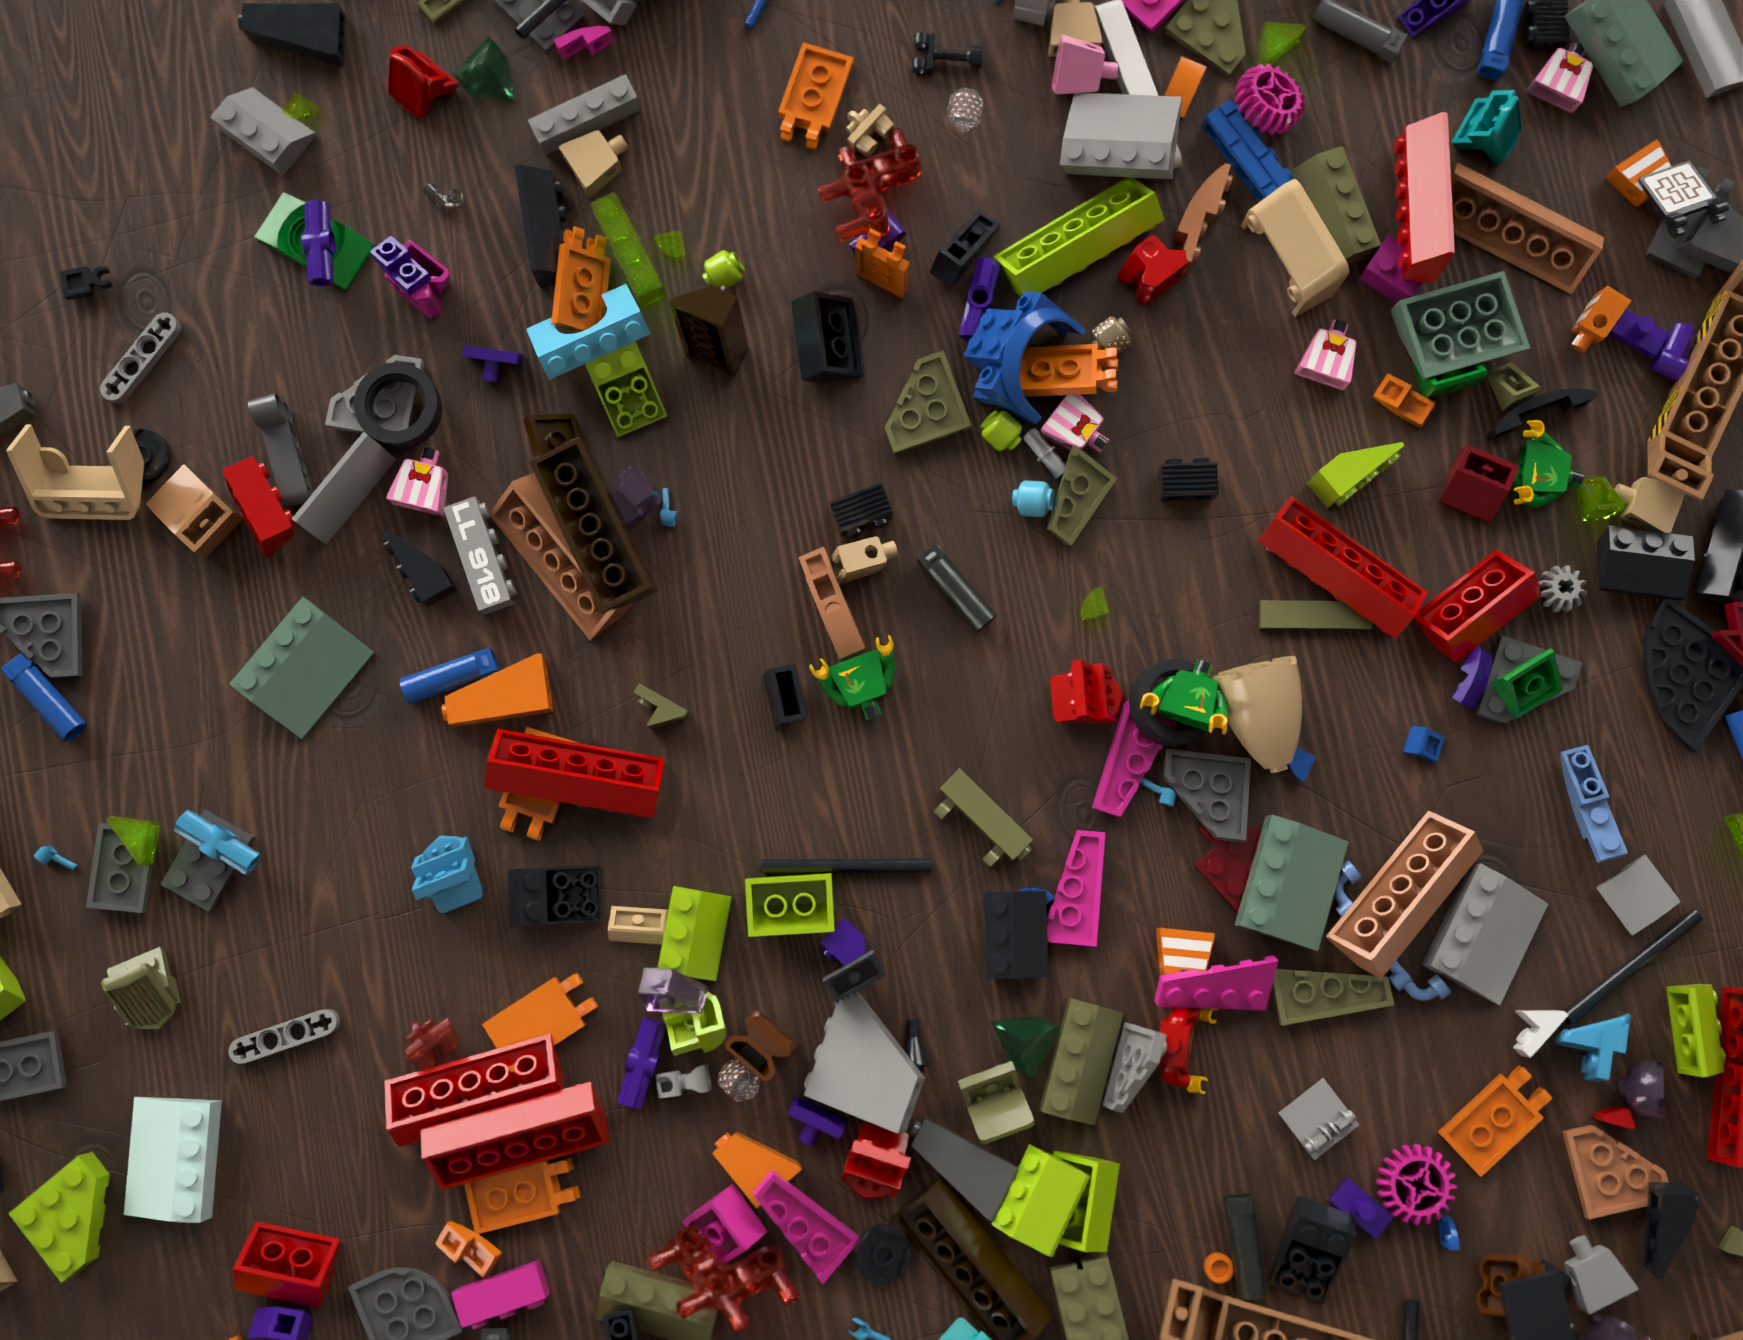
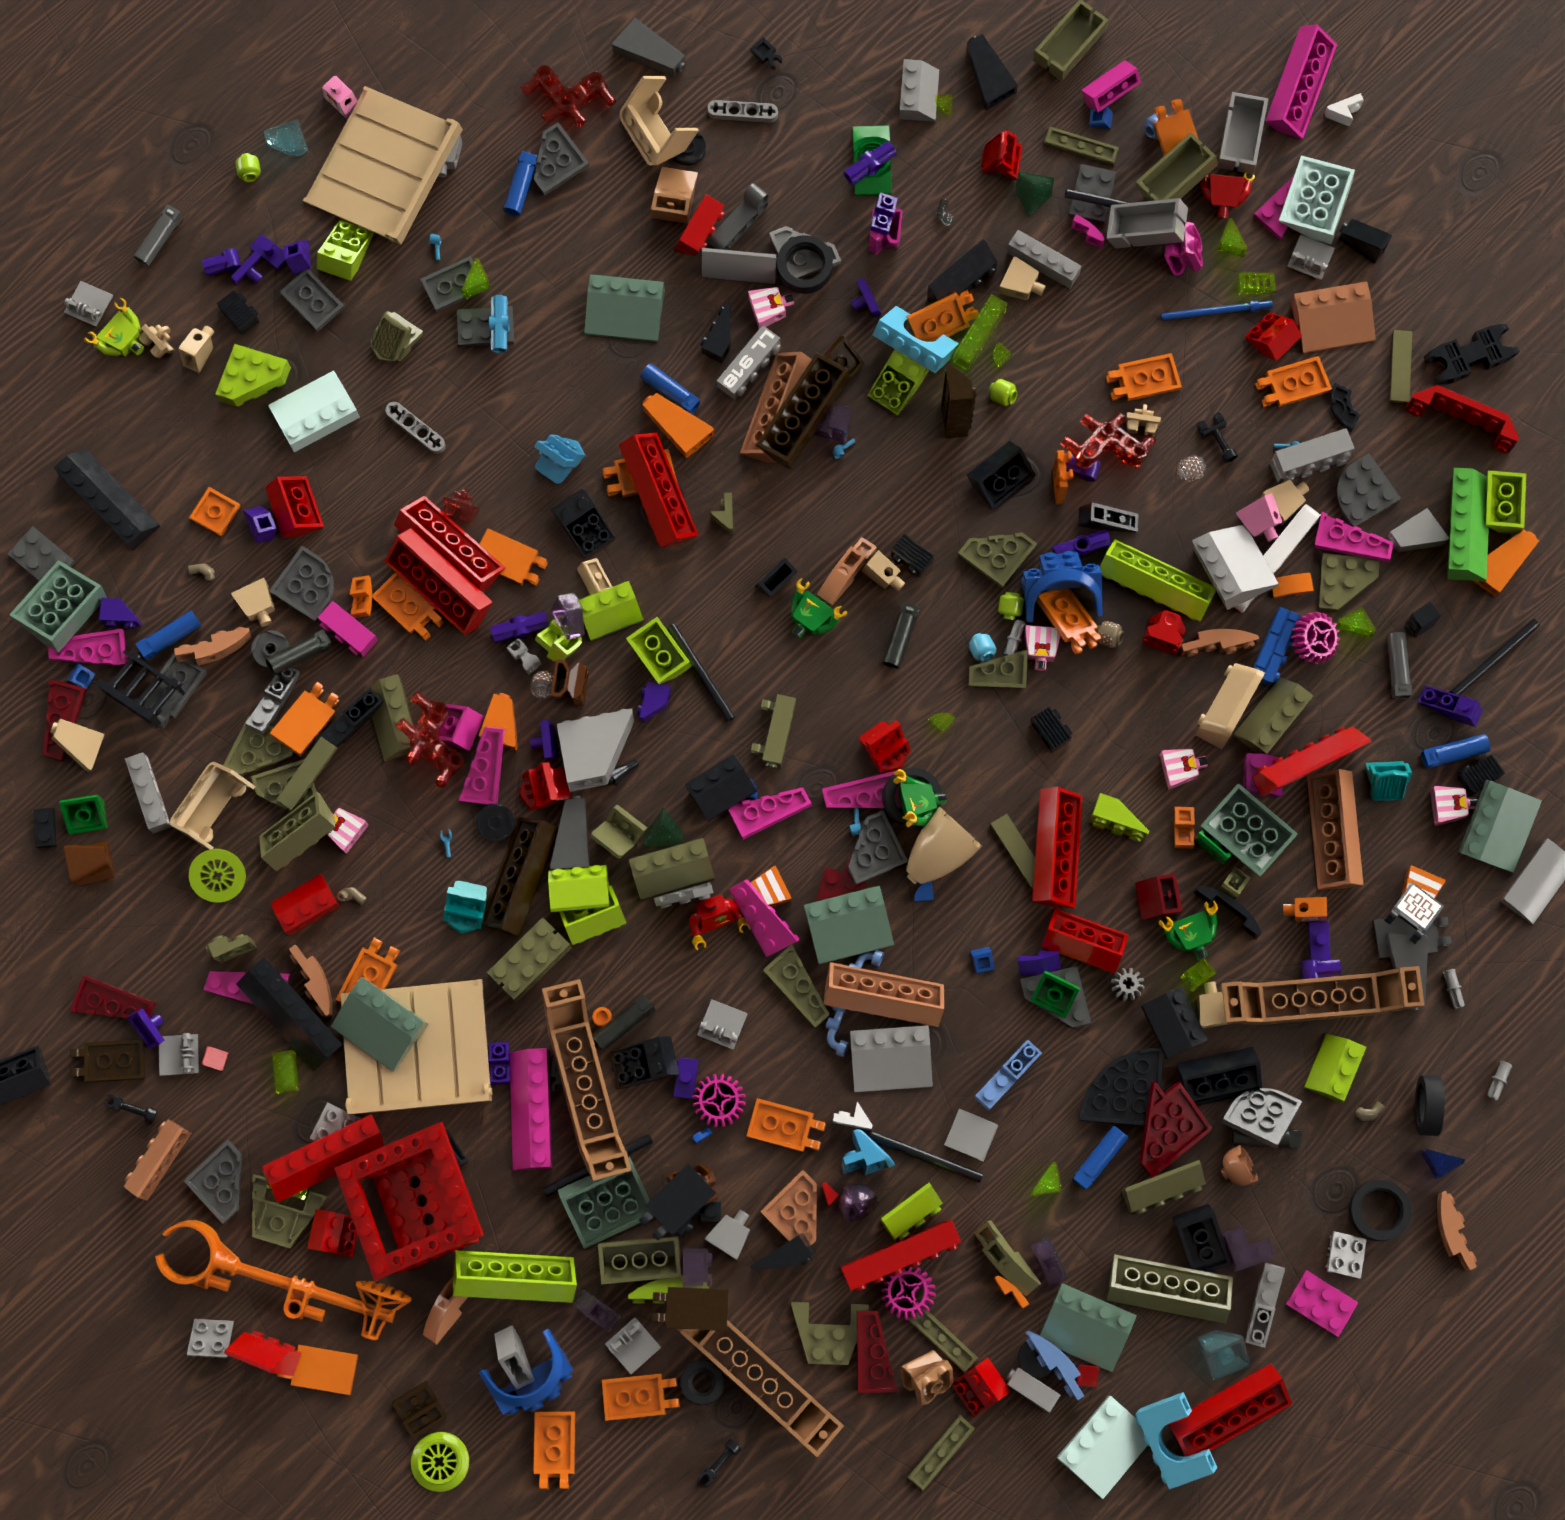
camera: 60 degrees right, 5 degrees down
(854, 976) = (639, 707): black brick -> none

